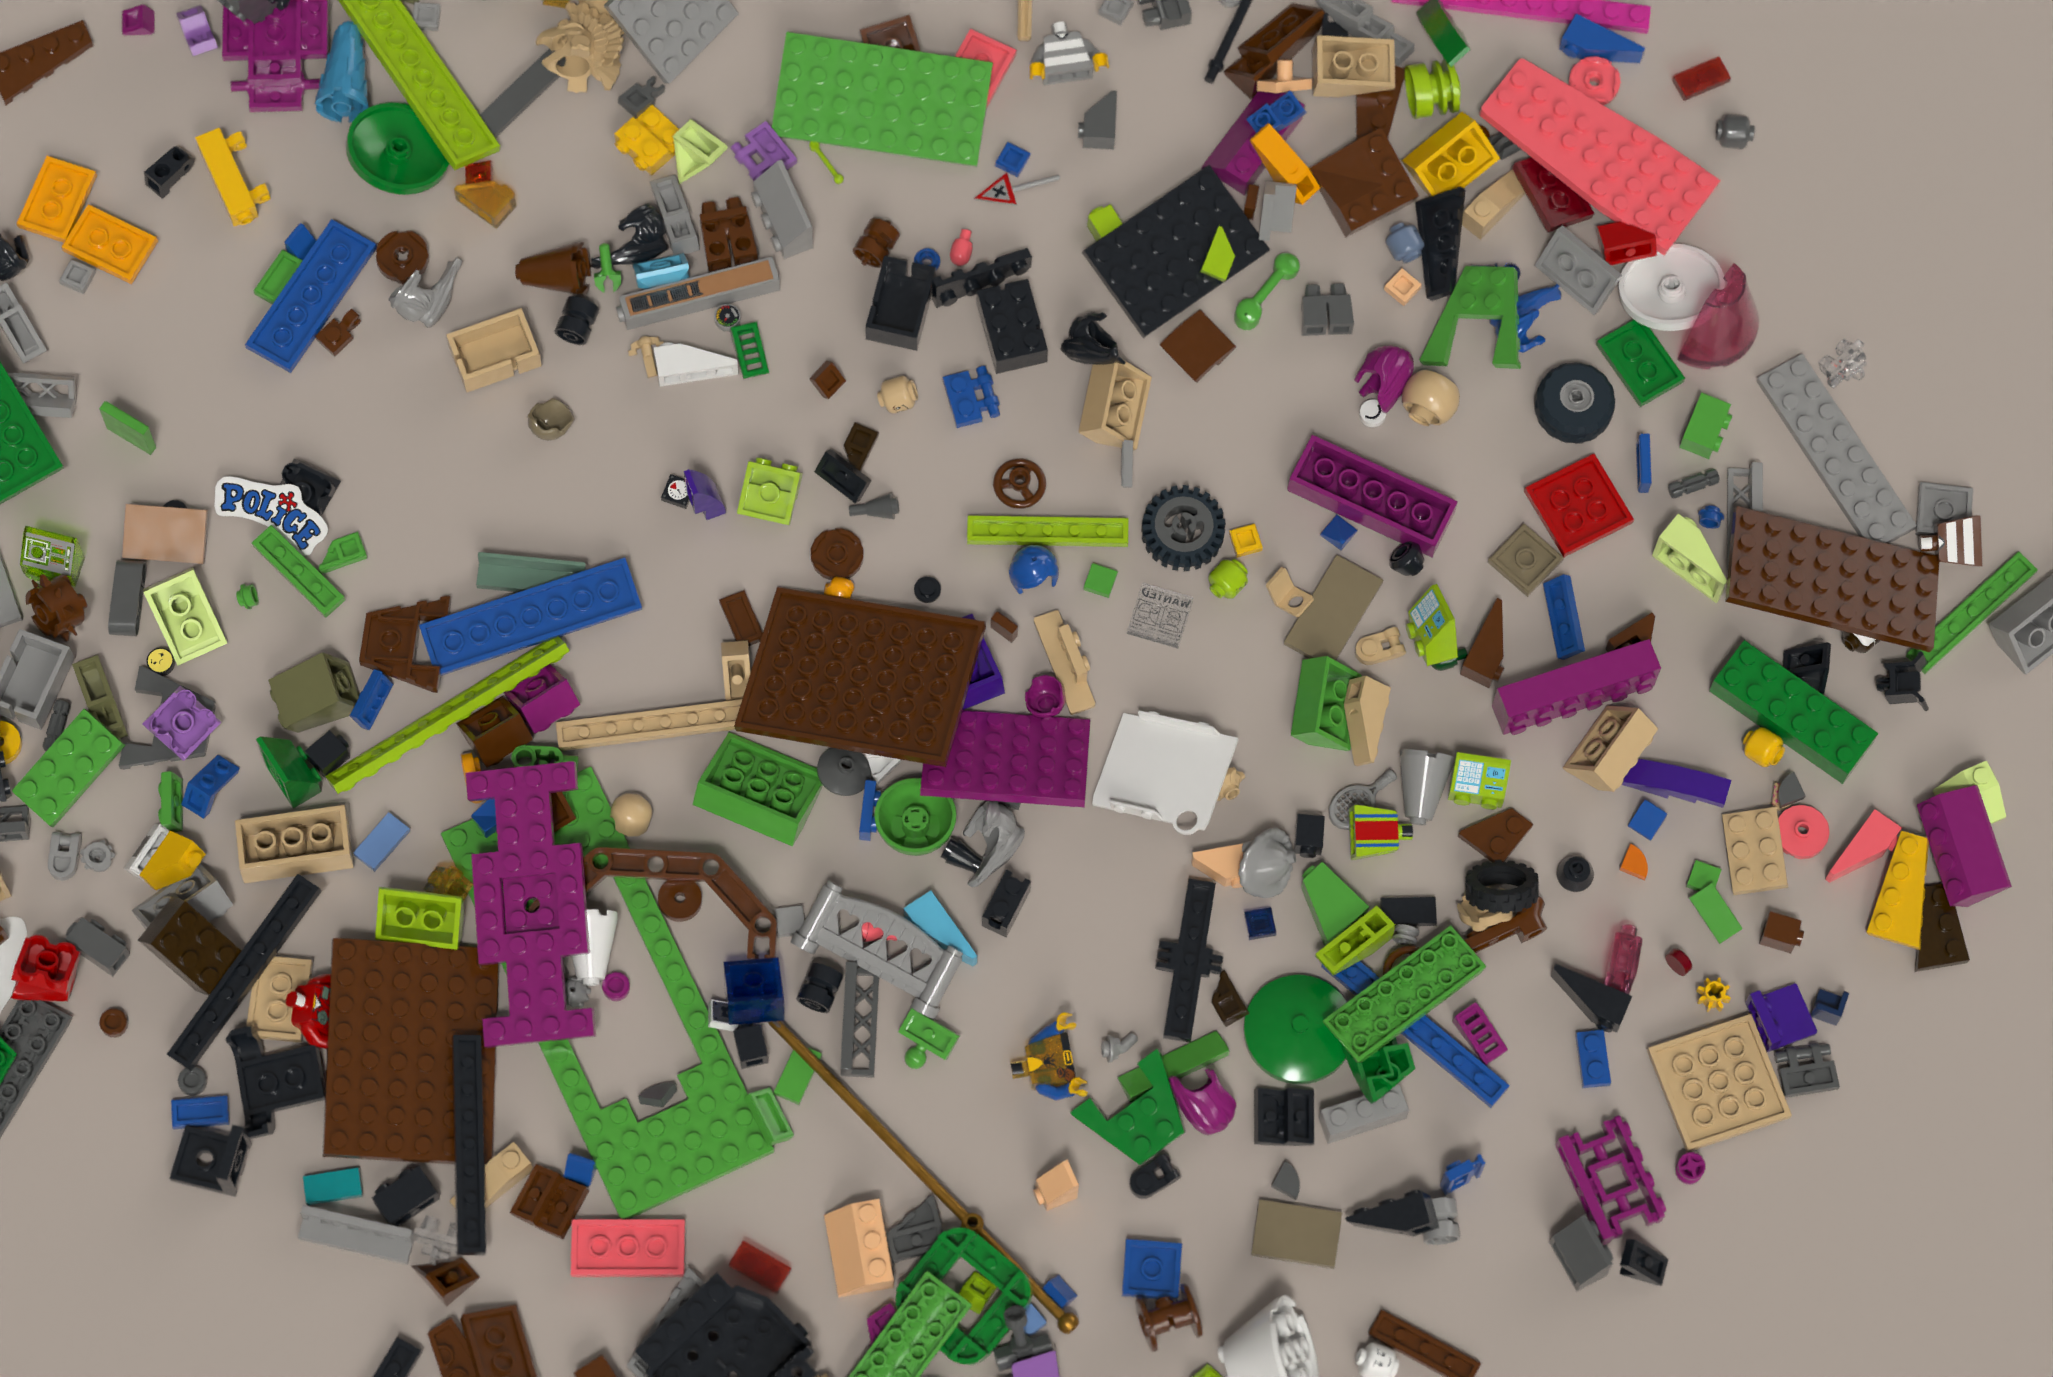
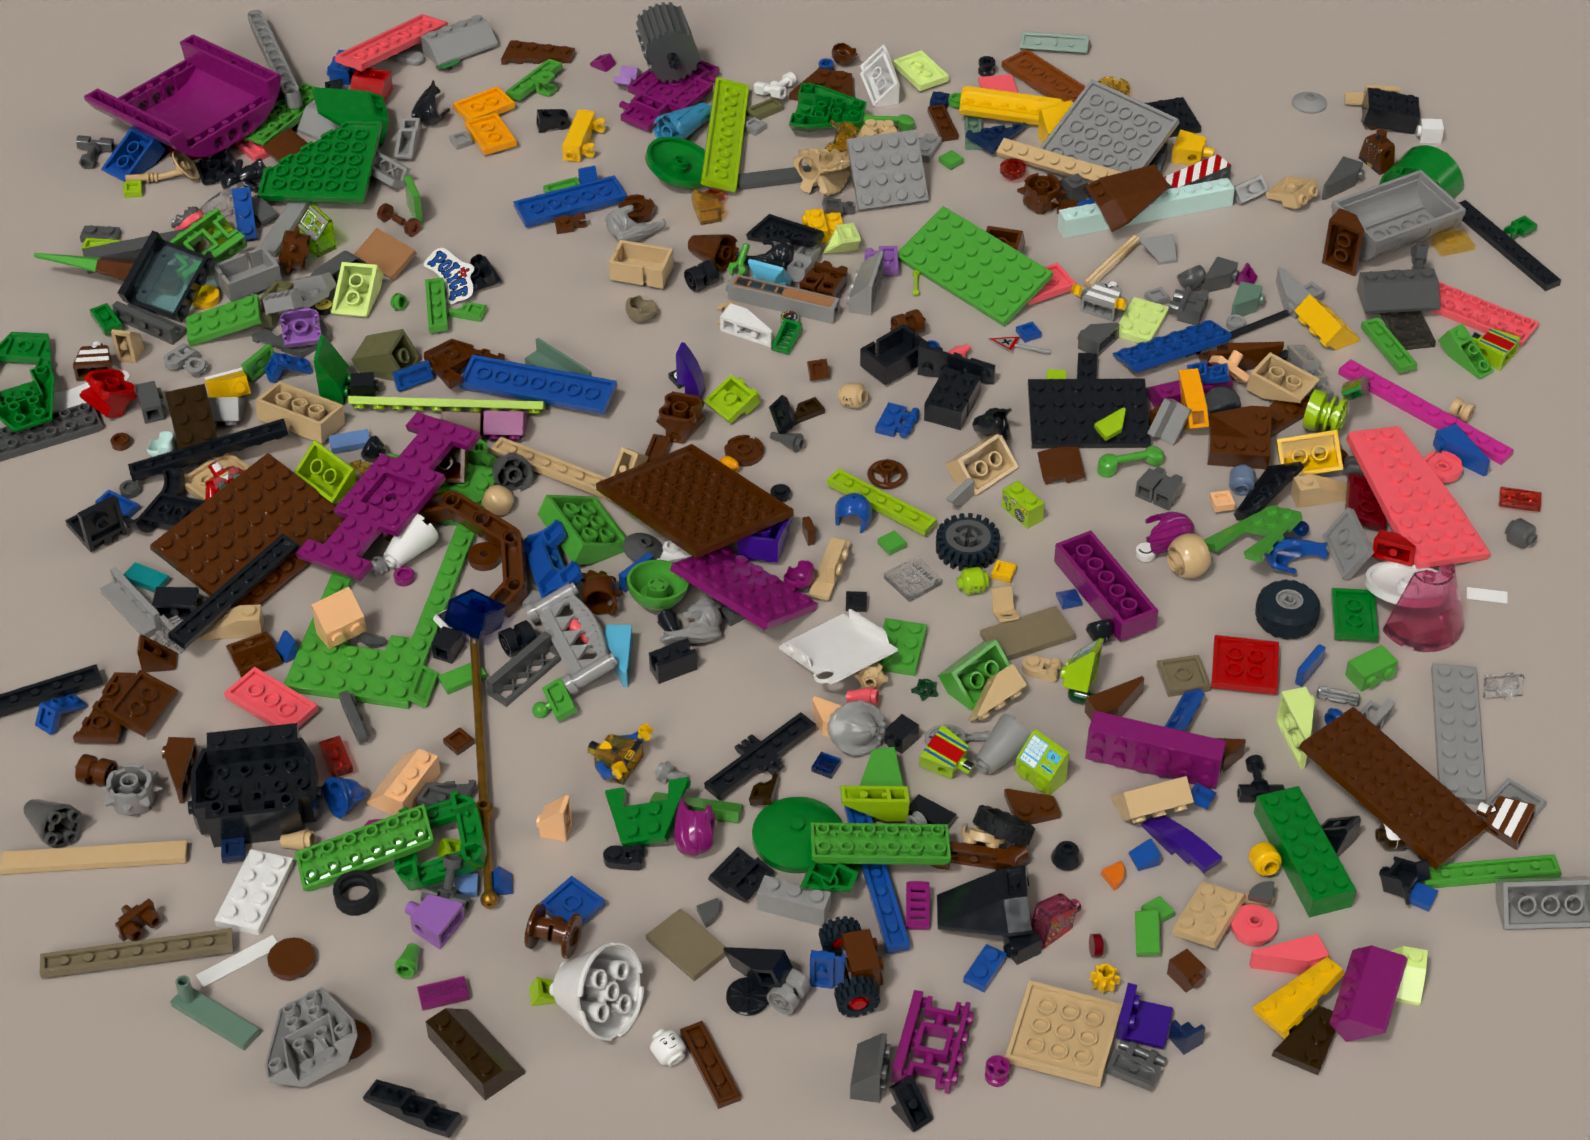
camera: 40 degrees right, 25 degrees down
(86, 111) = (537, 79): none -> bright green plate
(101, 463) = (386, 212): none -> copper wheel
(139, 673) = (307, 293): none -> light grey plate
(177, 999) = (164, 444): none -> light aqua hair
(426, 839) = (373, 449): none -> black cone
(611, 185) = (779, 227): none -> black wing
(614, 766) = (512, 471): none -> dark grey cylinder
(624, 1105) = (338, 618): none -> light nougat slope
(735, 1206) = (354, 716): none -> dark grey plate
(738, 558) = (681, 415): none -> reddish brown piece
(771, 871) = (546, 561): none -> blue bracket
(817, 1311) = (342, 795): none -> blue piece
(852, 864) = (598, 590): none -> reddish brown piece
(865, 1156) = (458, 741): none -> reddish brown tile
(1118, 176) = (1087, 366): none -> black plate
(1125, 687) = (856, 601): none -> black tile
(1129, 58) = (1142, 320): none -> yellowish green plate
(1192, 82) = (1173, 346): none -> blue plate
(1202, 435) = (1022, 504): none -> lime brick
(1218, 705) = (909, 640): none -> bright green plate
(1234, 812) = (866, 694): none -> coral cone
(1283, 748) = (925, 684): none -> clear green plate
(1313, 142) = (1221, 399): none -> black tile
(1399, 1253) = (746, 997): none -> black wheel
(1492, 1141) = (862, 969): none -> brick
(1553, 988) = (988, 904): none -> black wedge
(1653, 707) = (1202, 795): none -> blue plate
(1700, 659) = (1259, 786): none -> black bar
(1748, 239) = (1487, 595): none -> white sticker
(1933, 687) = (1423, 896): none -> blue tile

